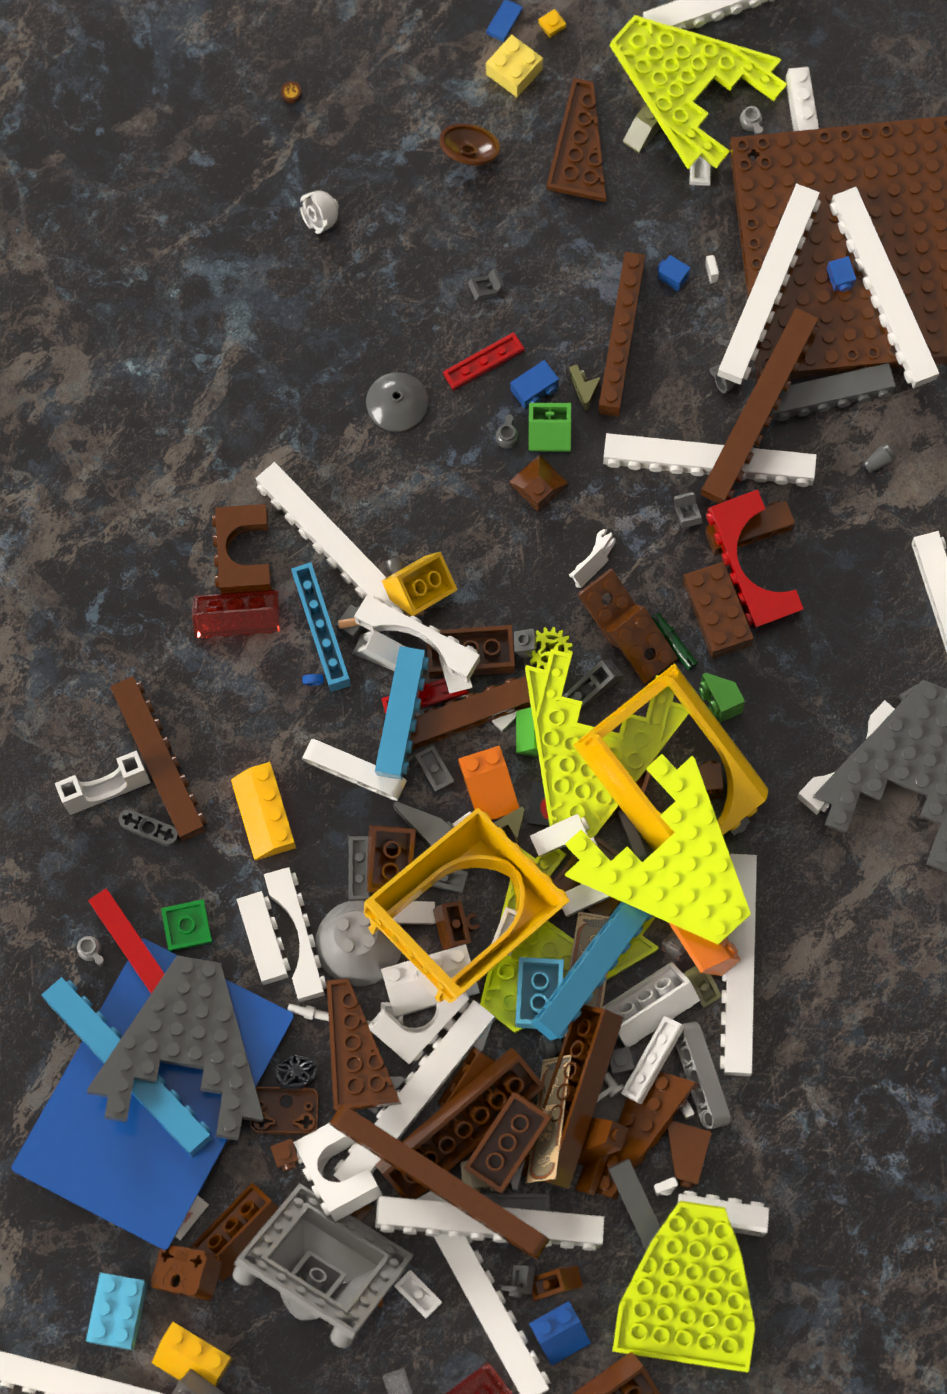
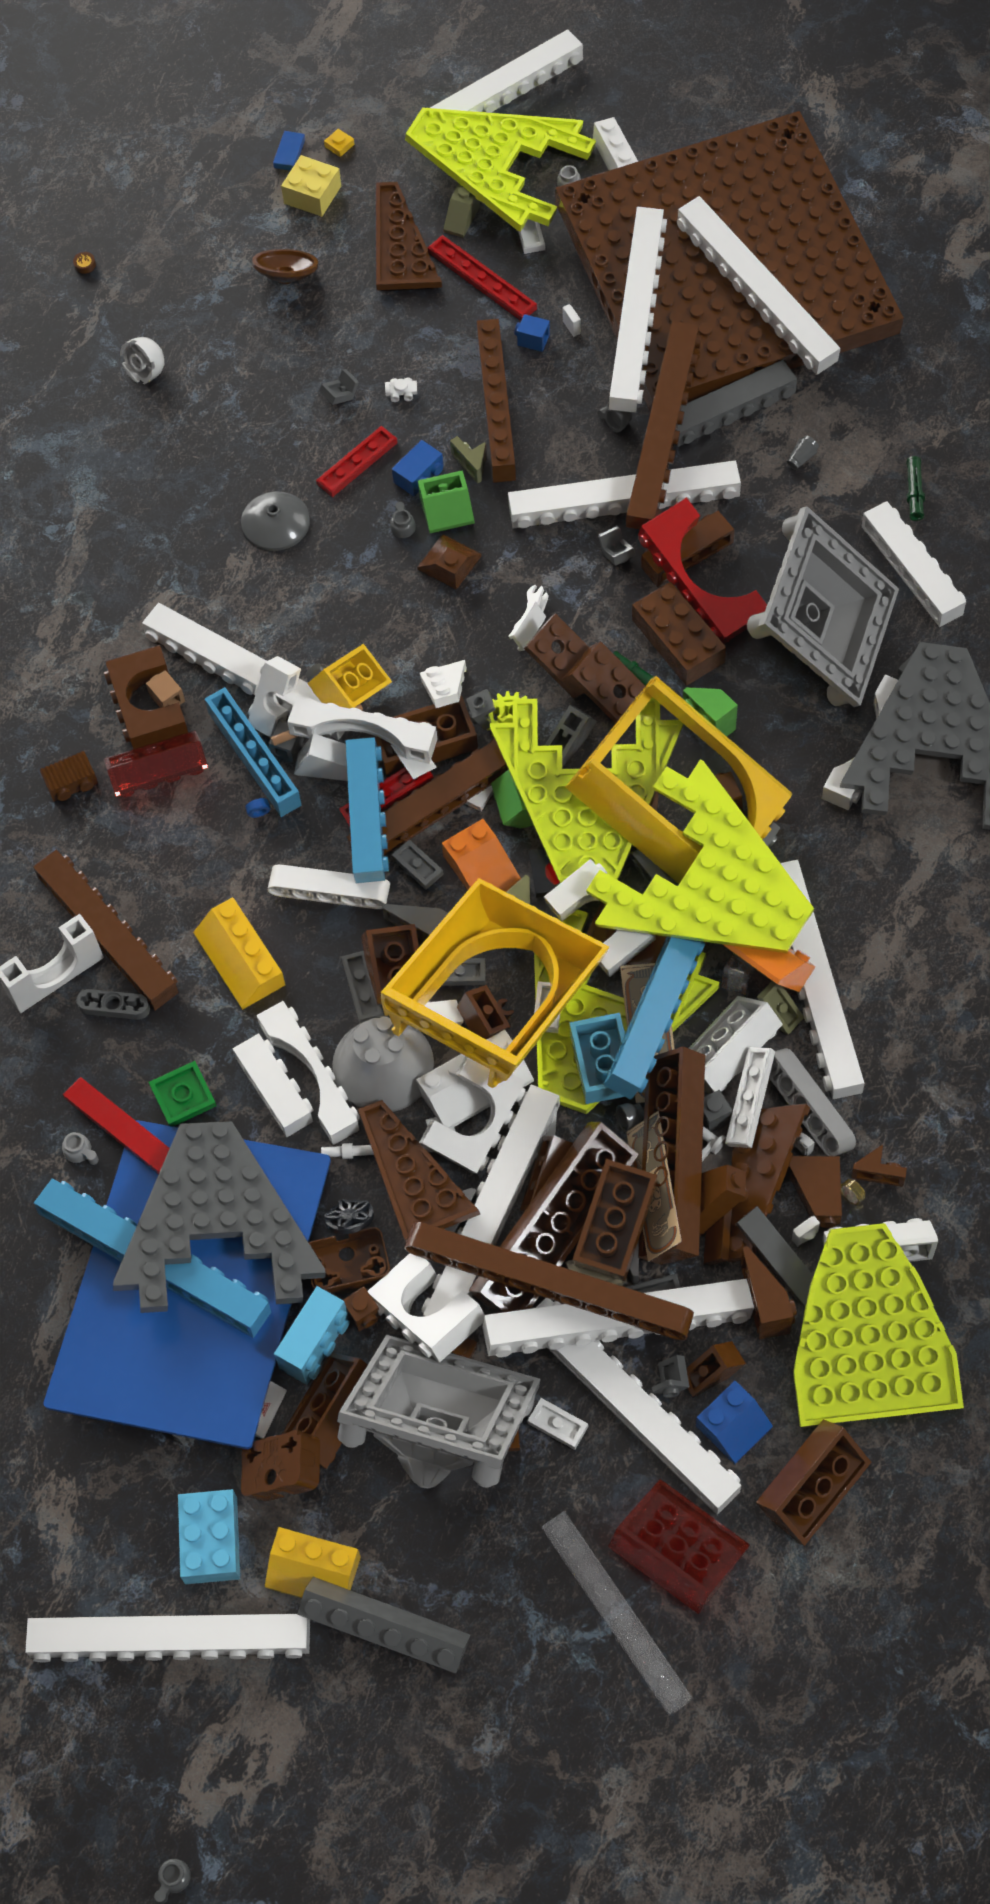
camera: 15 degrees left, 10 degrees down
(159, 607) = (69, 776): none -> reddish brown brick
(240, 1168) = (312, 1336): none -> medium azure brick
(260, 548) = (164, 690): none -> medium nougat brick
(353, 574) = (276, 677): none -> white arch
(501, 606) = (444, 683): none -> white wing
(541, 297) = (401, 387): none -> white piece
(616, 1242) = (772, 1308): none -> reddish brown slope
(644, 201) = (482, 277): none -> red tile
(714, 1163) = (852, 1192): none -> clear yellow tile
(735, 1147) = (871, 1169): none -> reddish brown slope
(841, 274) = (709, 282): blue brick -> none
(848, 632) = (827, 607): none -> light grey piece

